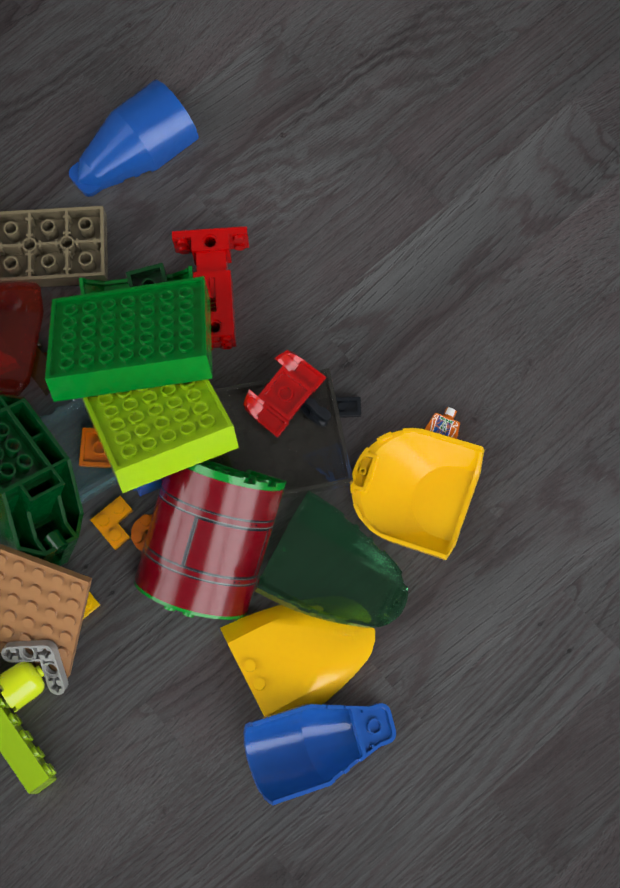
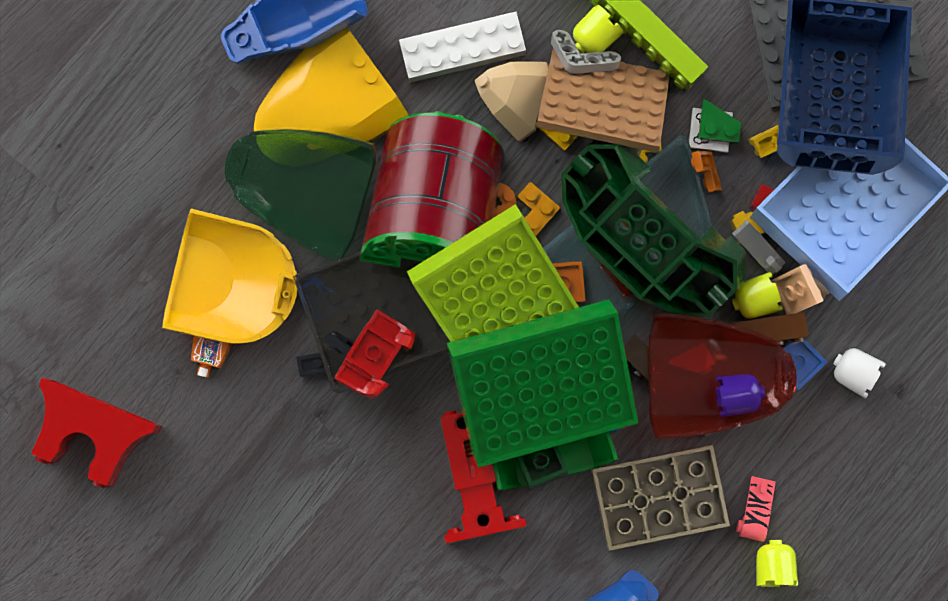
camera: 165 degrees right, 10 degrees up
(111, 632) = (514, 95): none -> tan brick
(155, 689) = (462, 47): none -> white brick
(563, 386) = (110, 428): none -> red piece

